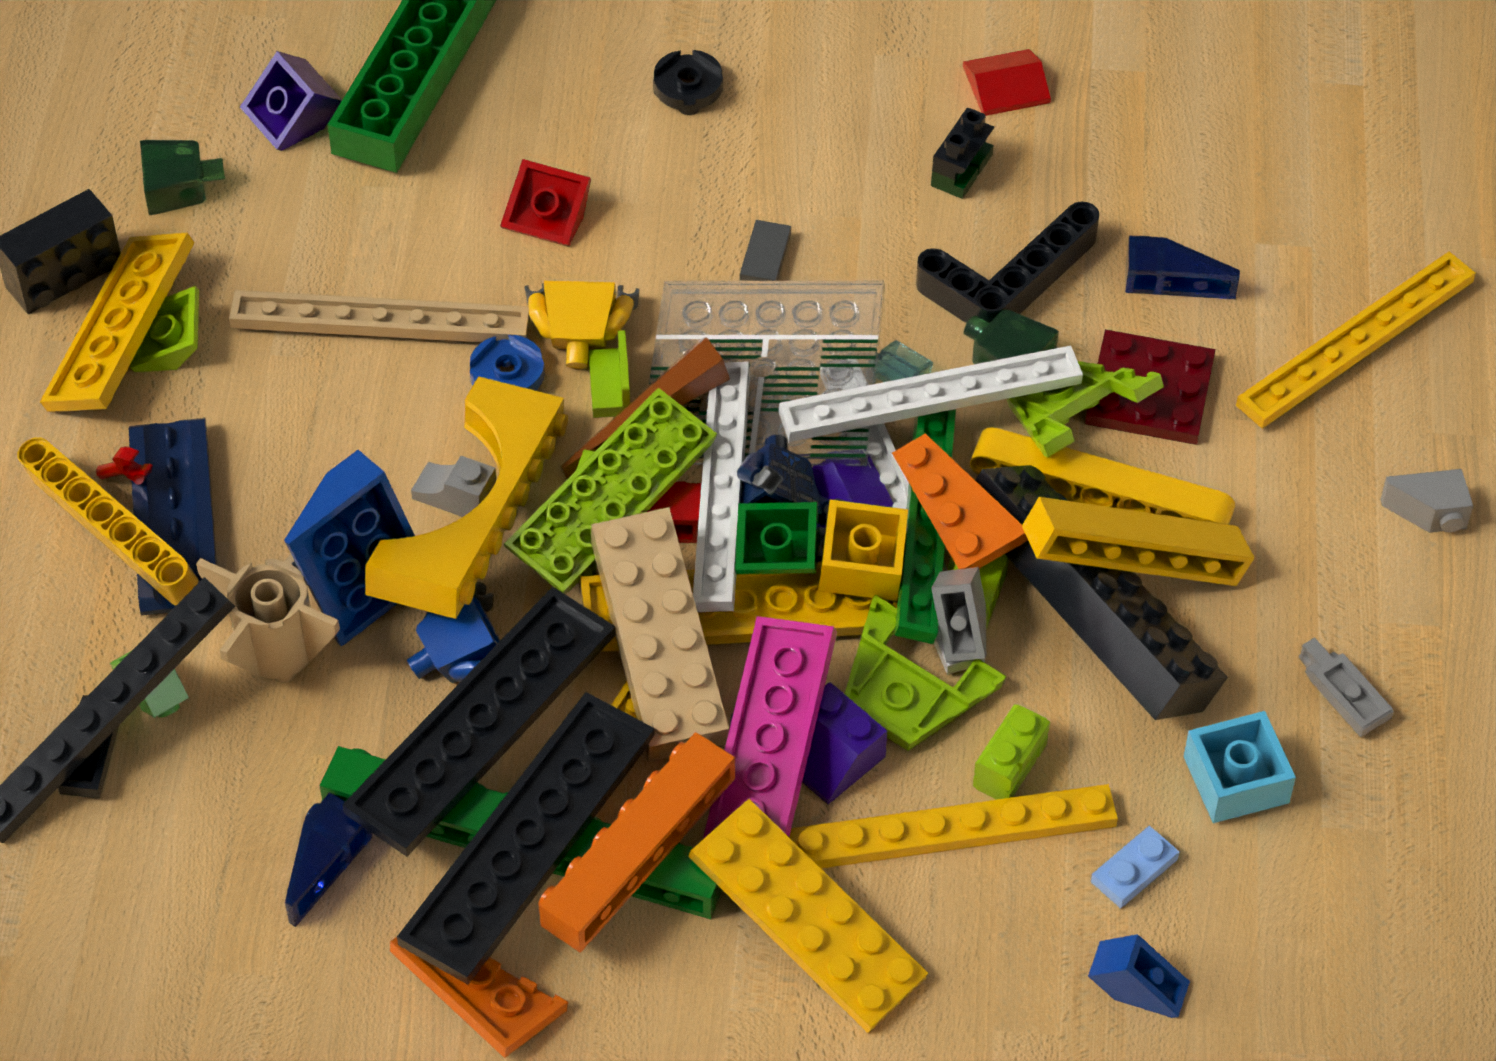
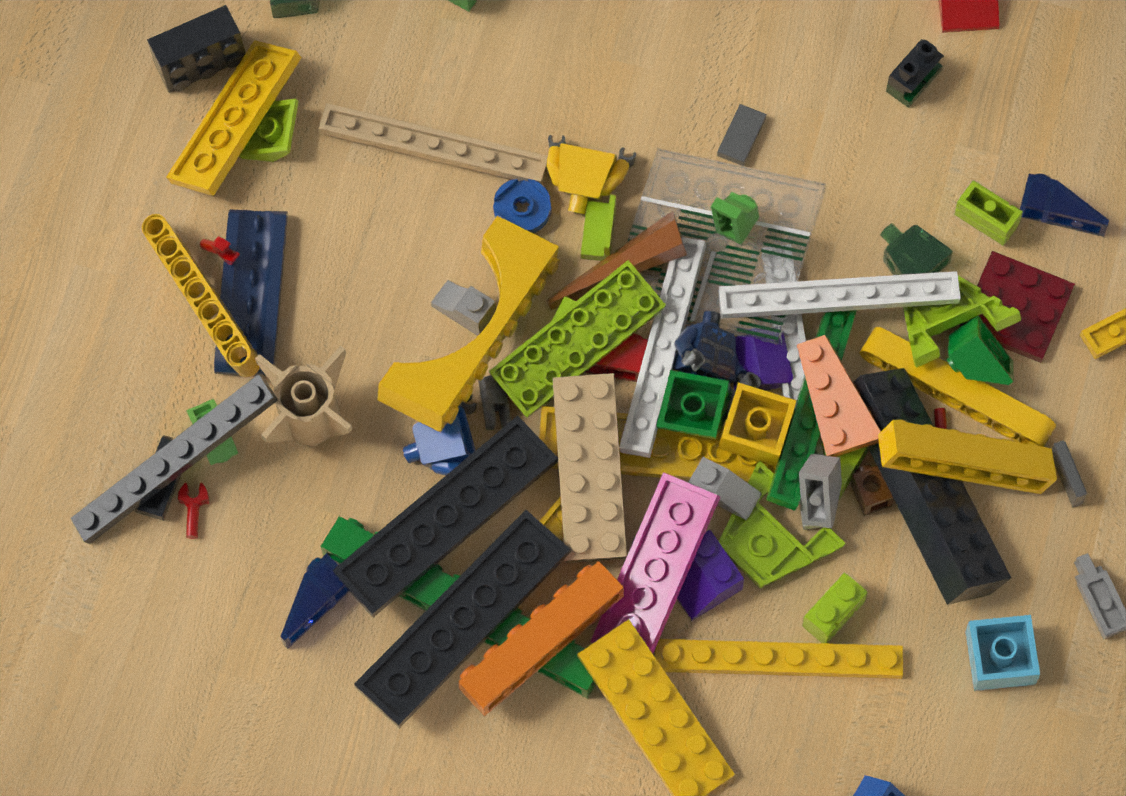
camera: 15 degrees right, 15 degrees up
(137, 774) = (193, 506): none -> red bar
(339, 534) = (365, 354): blue slope -> none
(494, 1004) = (420, 742): orange wing -> none
(514, 585) = (494, 400): none -> dark grey hinge
(546, 203) = (579, 62): red slope -> none
(779, 328) = (735, 216): none -> bright green arch
(857, 635) = (734, 492): none -> light grey slope
(900, 362) = (826, 258): clear light blue piece -> none
(1020, 280) = (933, 190): black beam -> none
(1027, 624) = (871, 501): none -> reddish brown brick
(1090, 286) = (988, 212): none -> lime brick
(1119, 434) = (979, 354): none -> green slope
(1134, 866) = (907, 715): light blue plate -> none
(1268, 556) = (1068, 473): none -> dark grey tile

